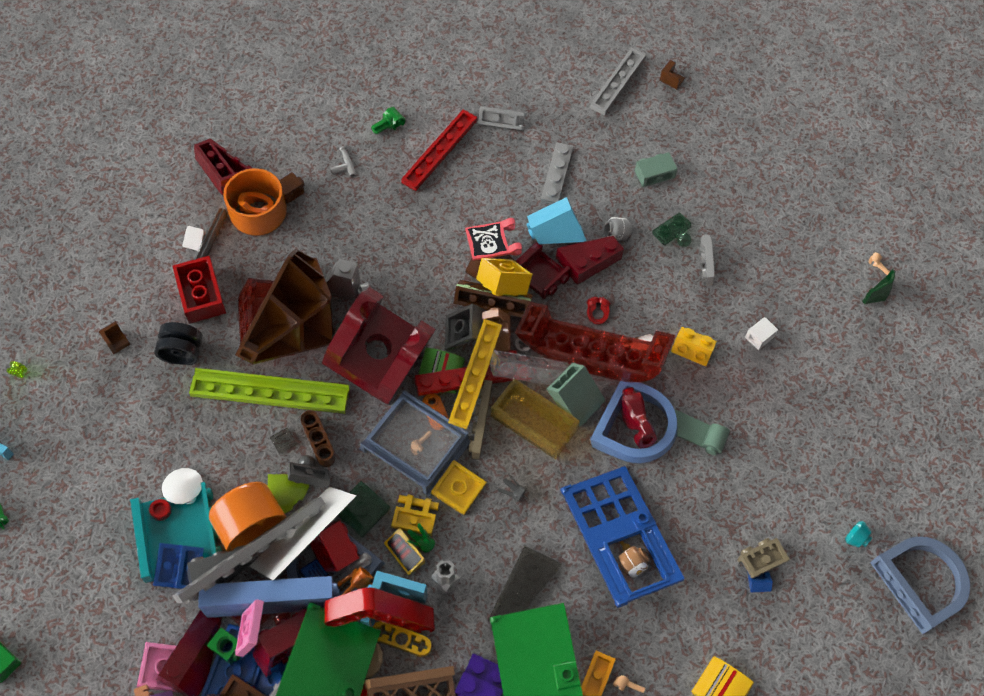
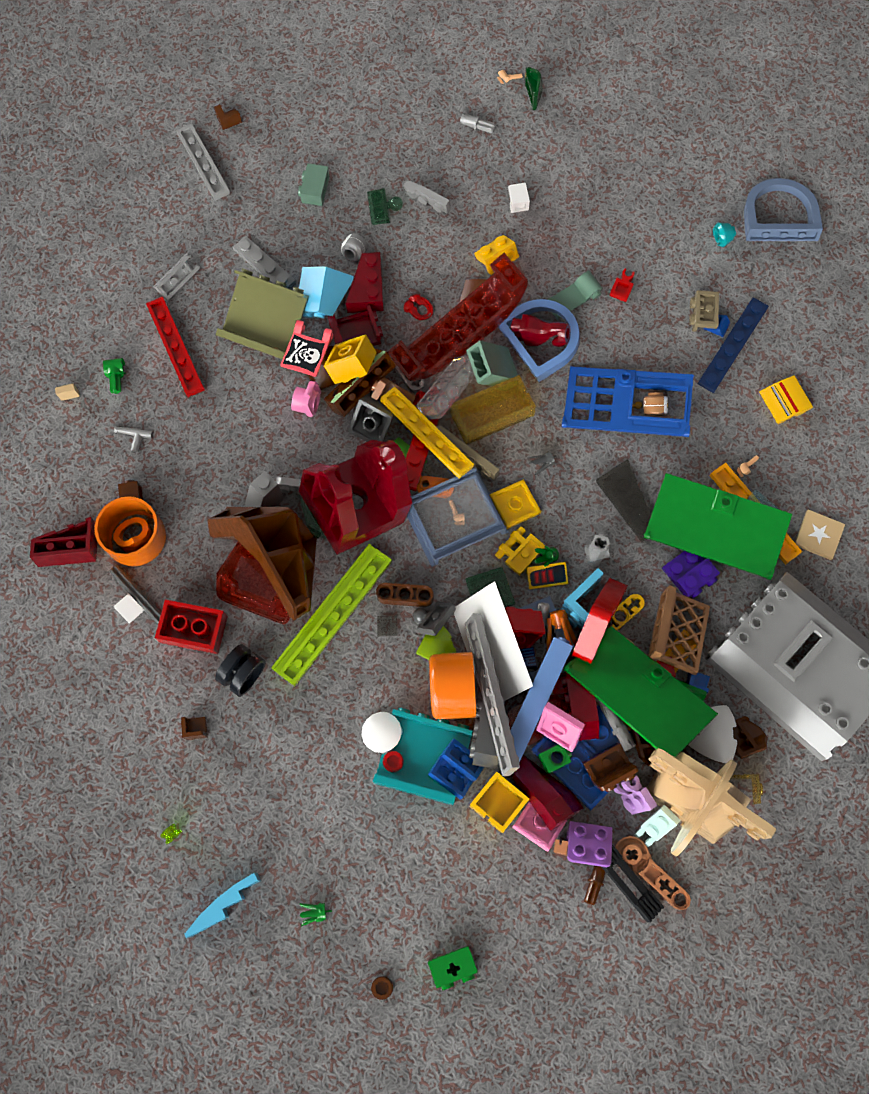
camera: 55 degrees left, 10 degrees up
(164, 619) = (499, 802): none -> yellow piece
(352, 98) = (67, 392): none -> tan tile
(451, 268) = (306, 399): none -> bright pink piece
(506, 192) = (263, 314): none -> olive panel
(735, 470) = (622, 287): none -> red plate
(748, 605) = (733, 345): none -> dark blue plate
(811, 261) = (477, 123): none -> light grey axle

